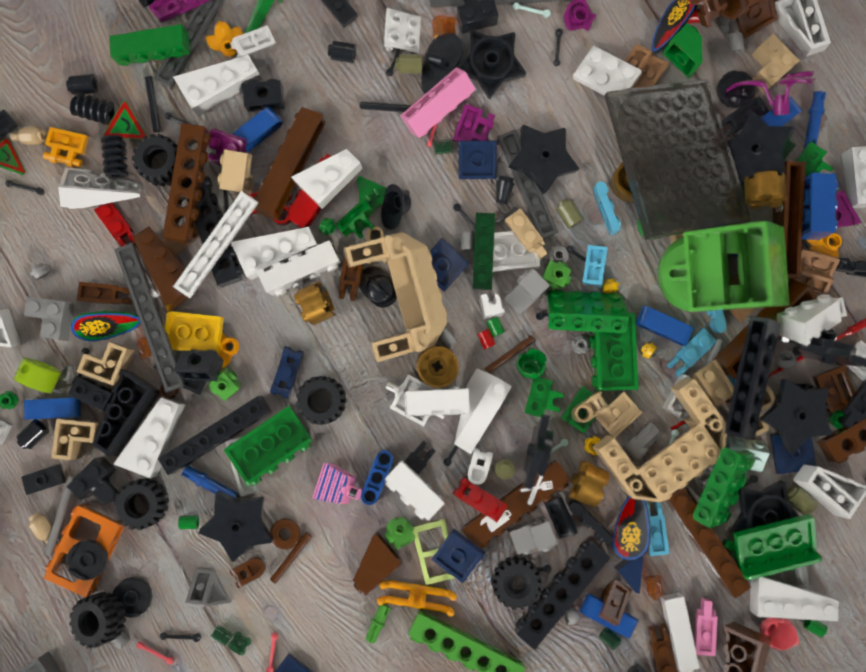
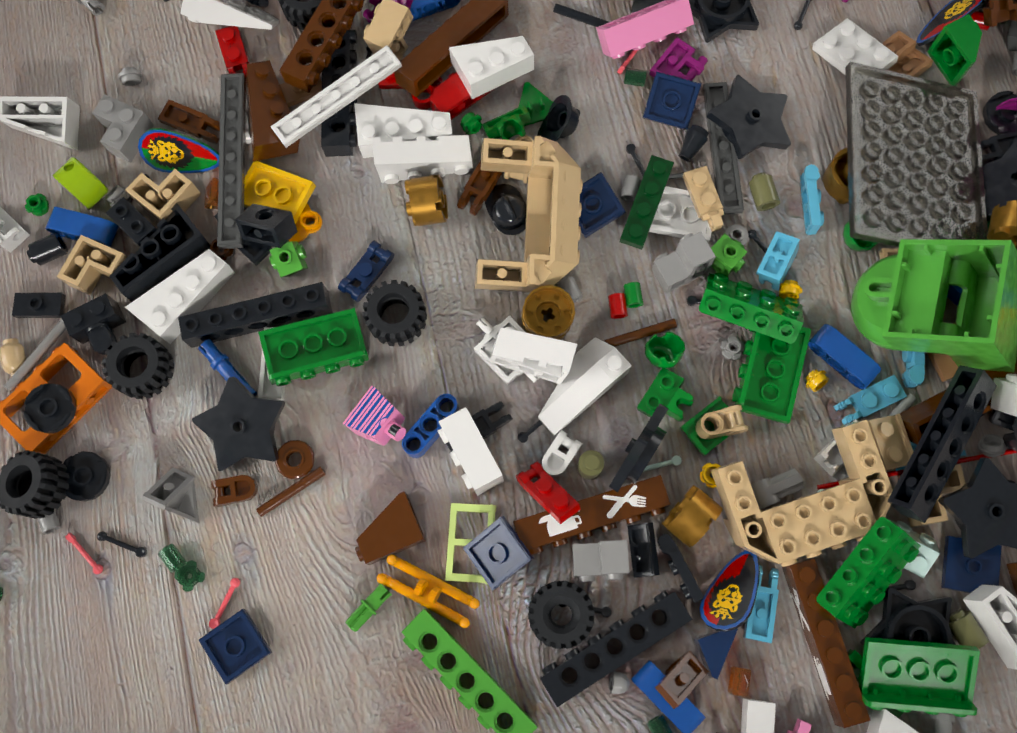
camera: 20 degrees right, 10 degrees down
(188, 522) = (185, 408): green hinge -> none
(399, 539) = (434, 501): bright green brick -> none
(491, 309) = (636, 268): white hinge -> none
(619, 416) = (755, 445): tan plate -> none

